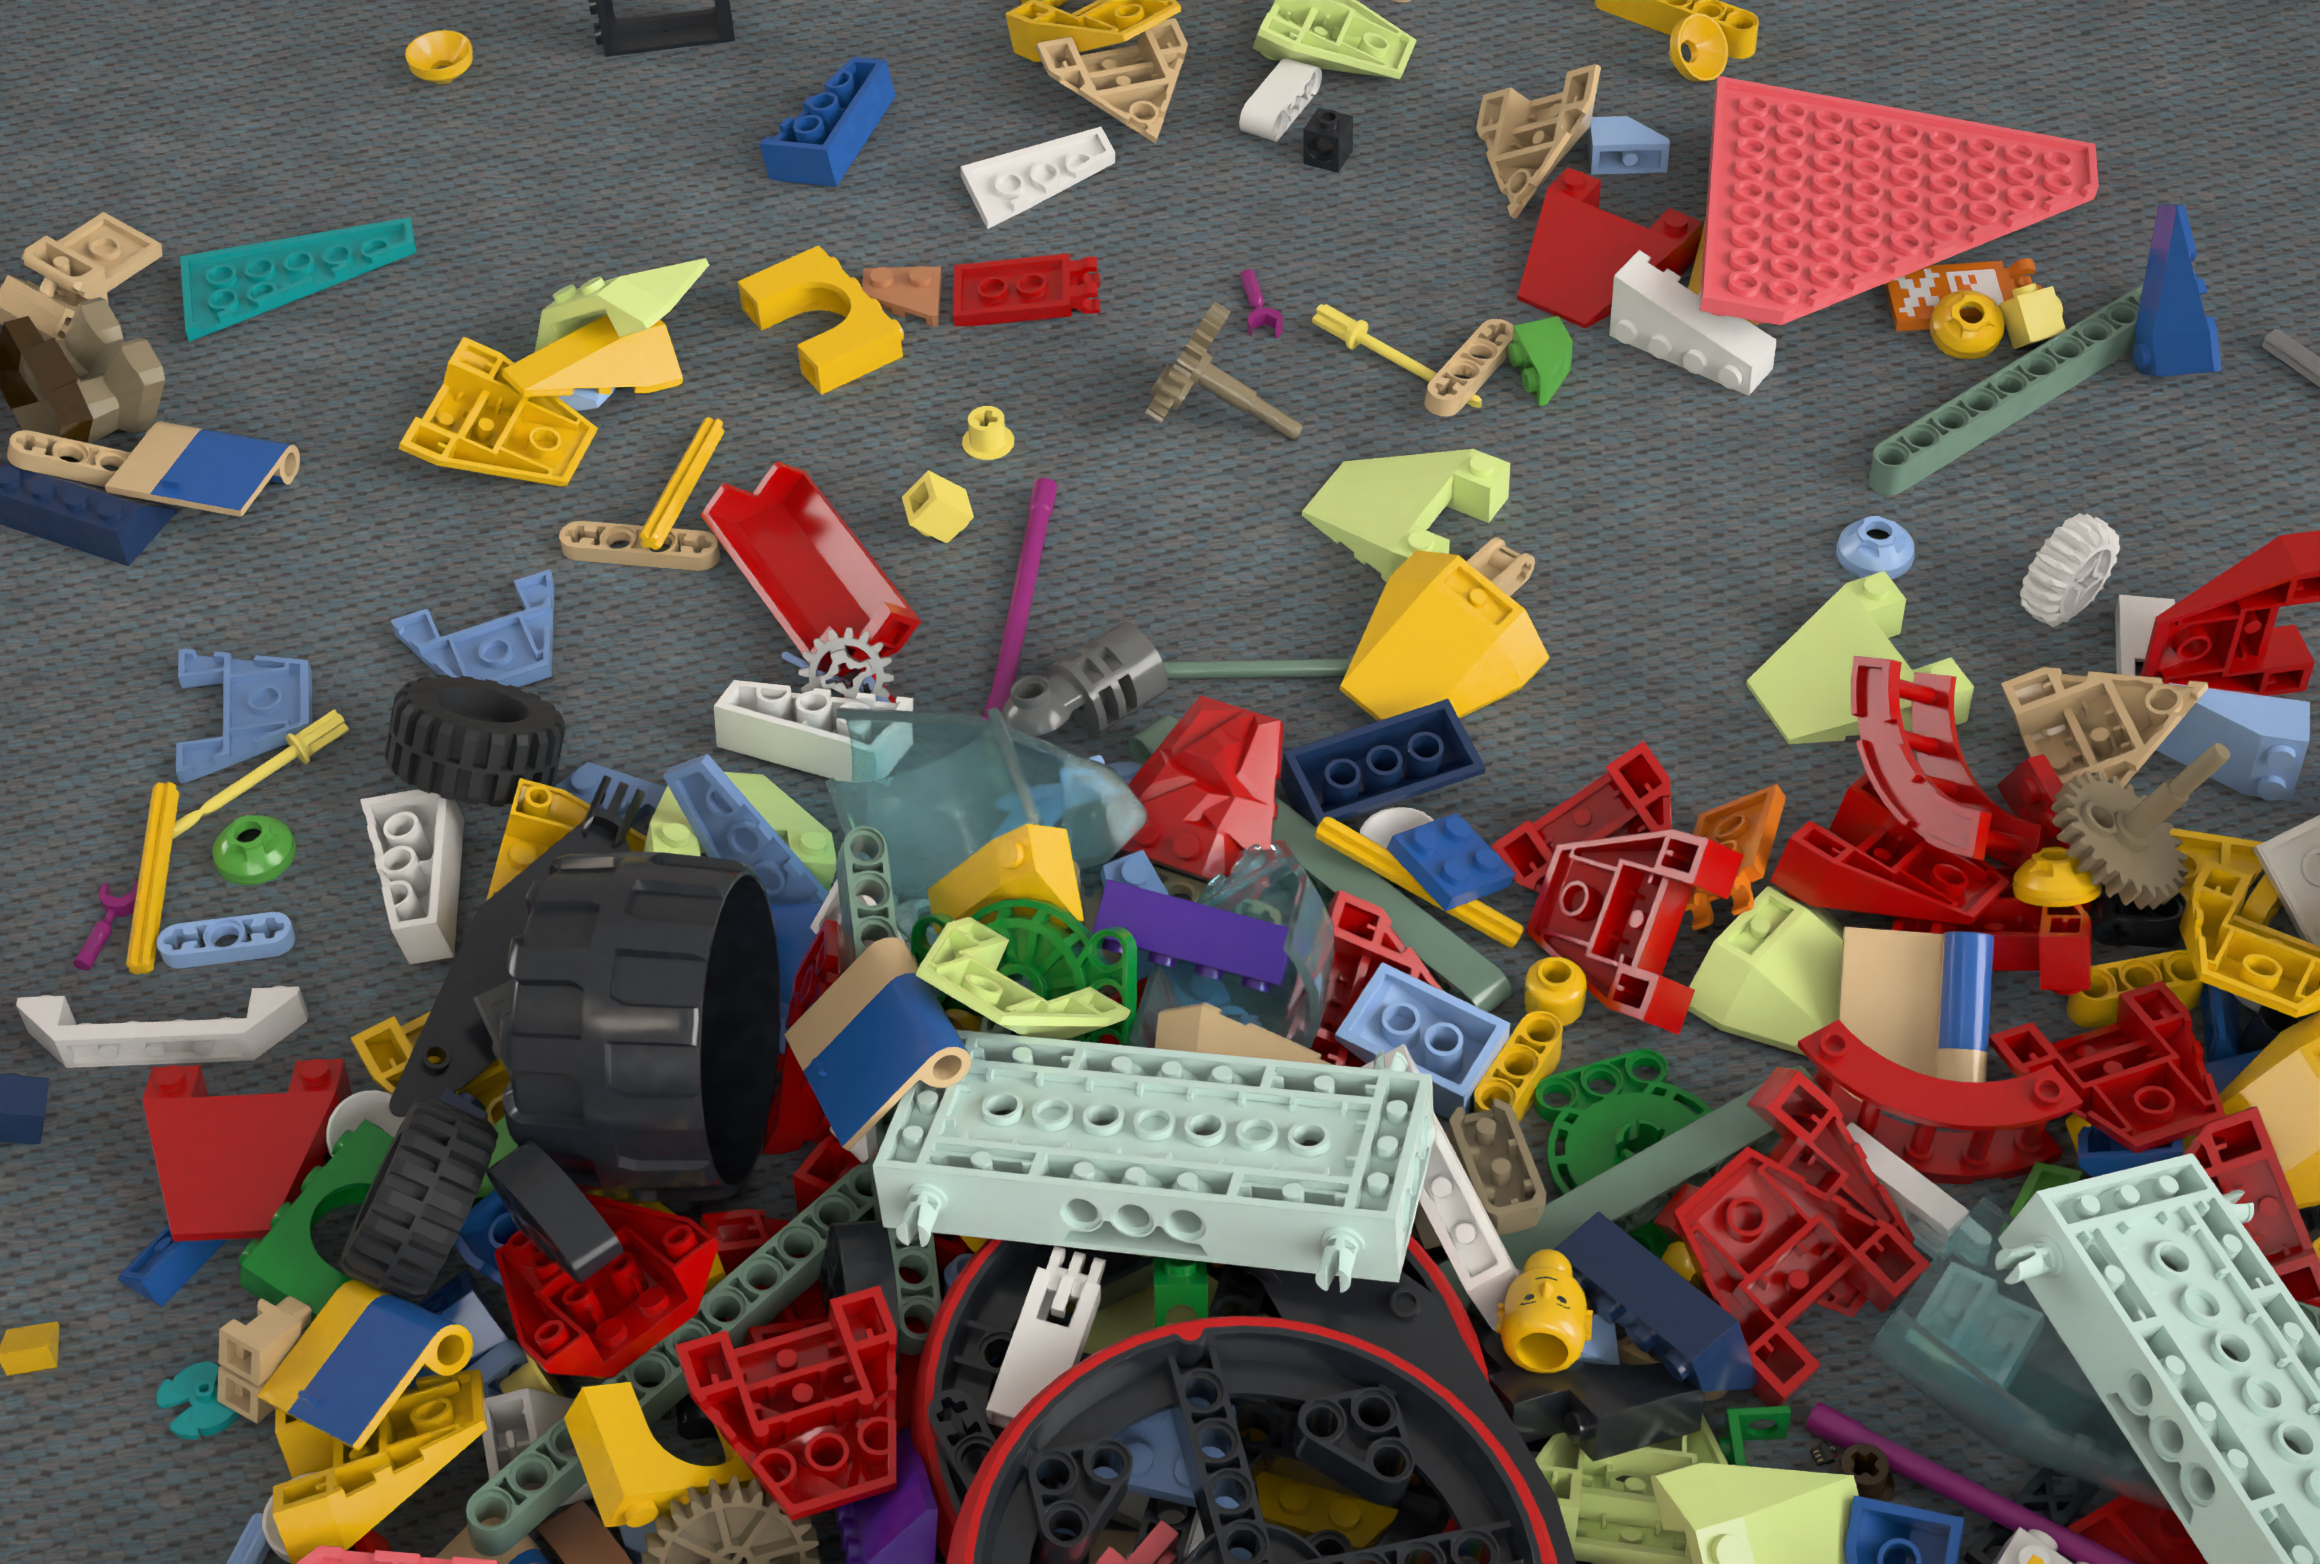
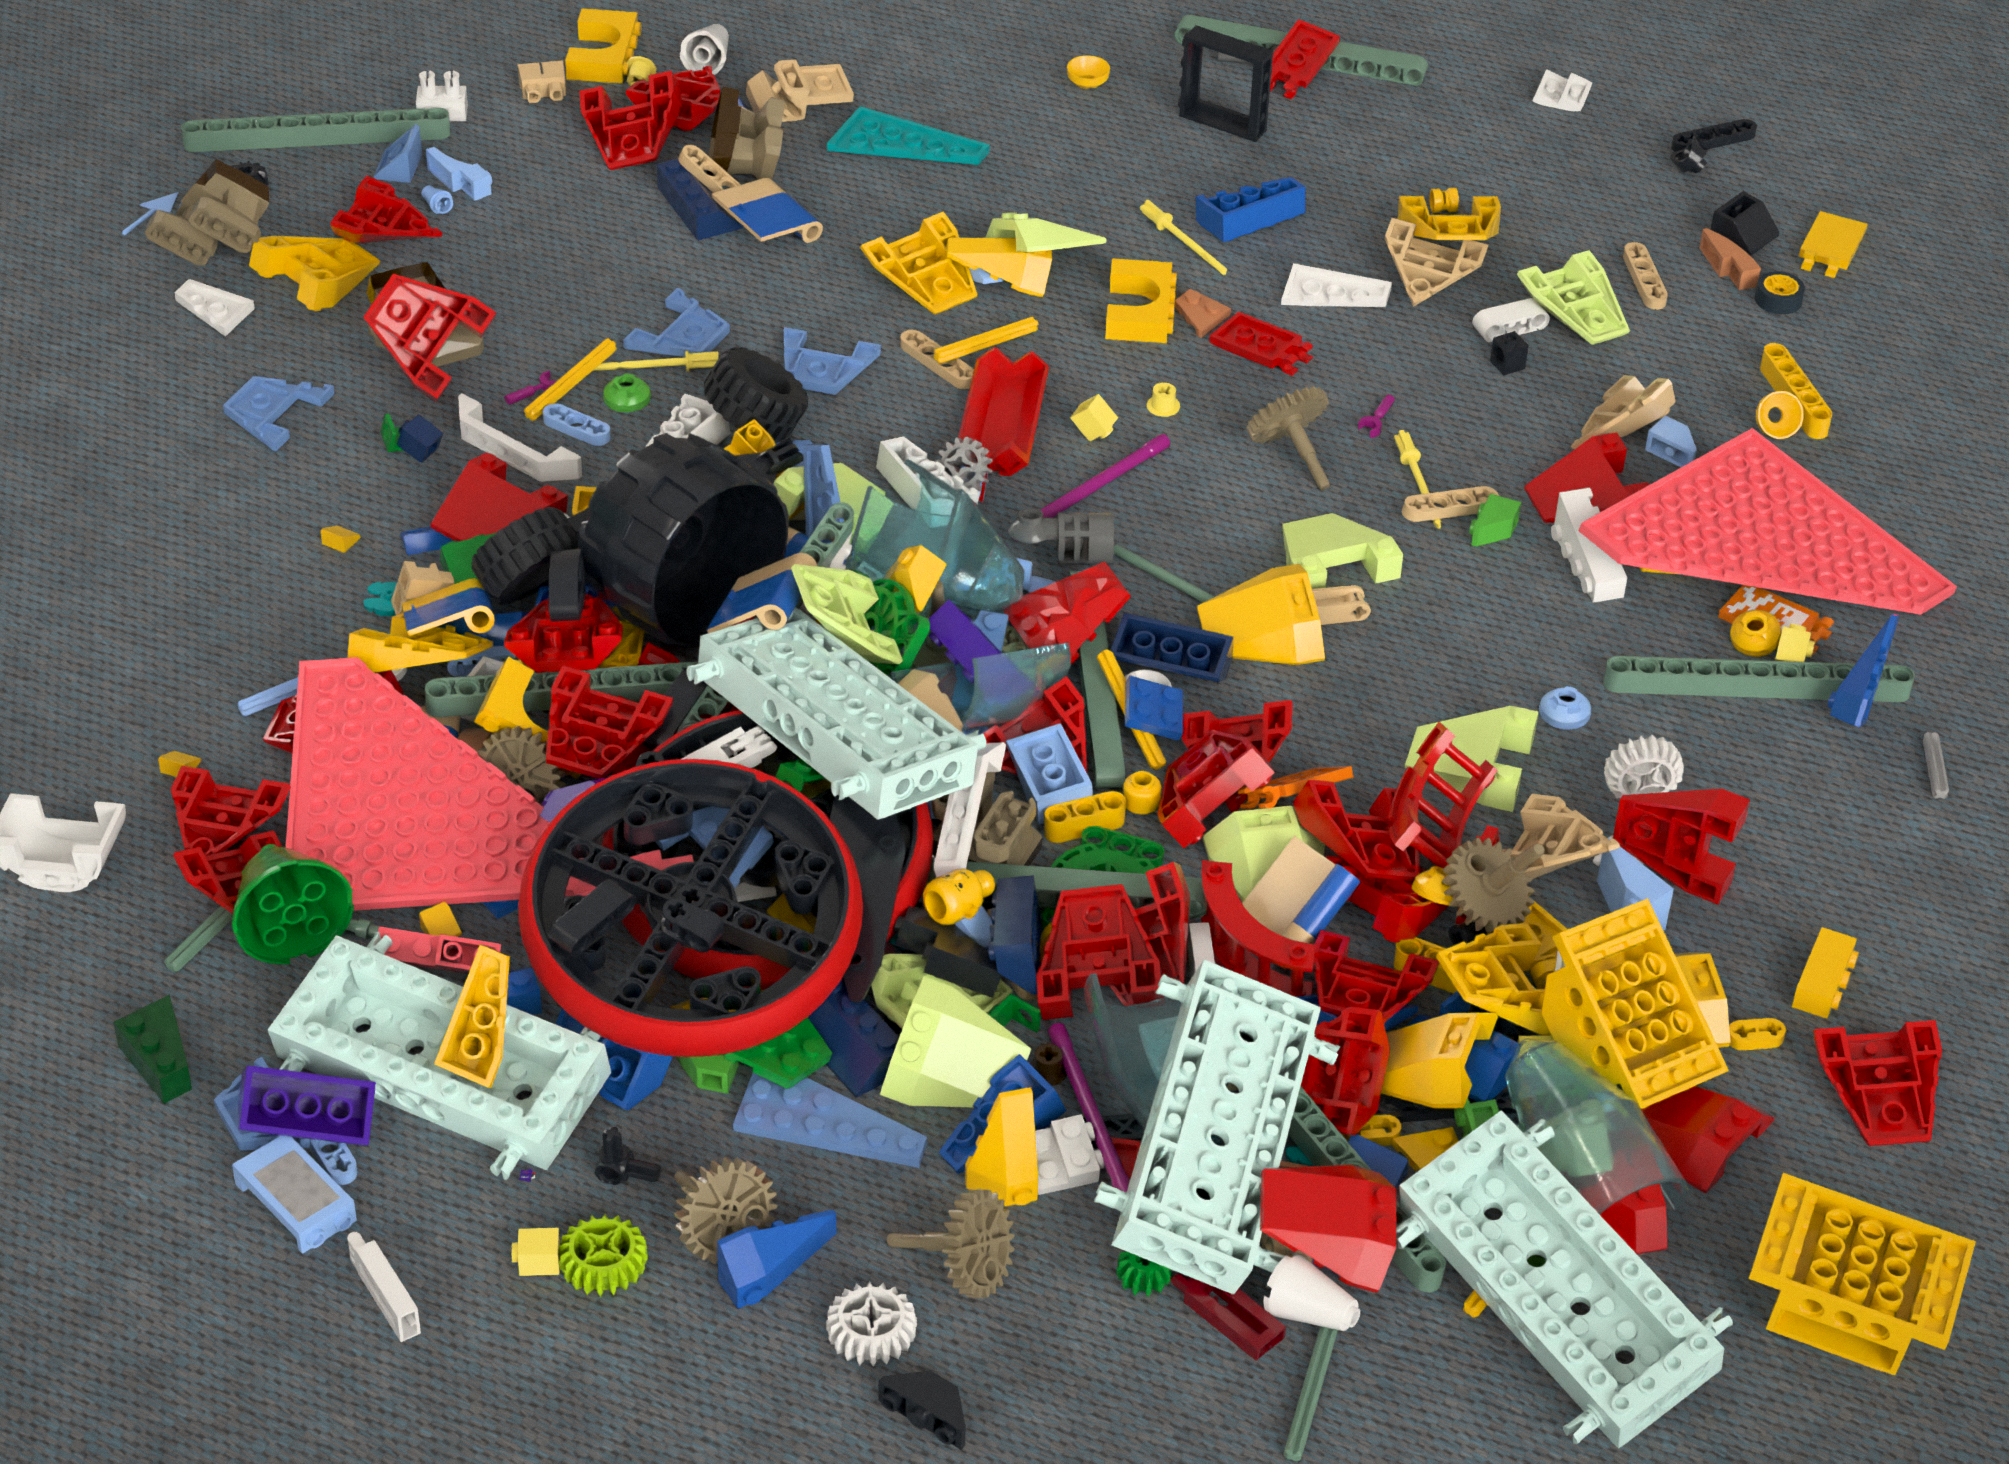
camera: 35 degrees right, 5 degrees down
(735, 199) = (1164, 220): none -> light yellow piece

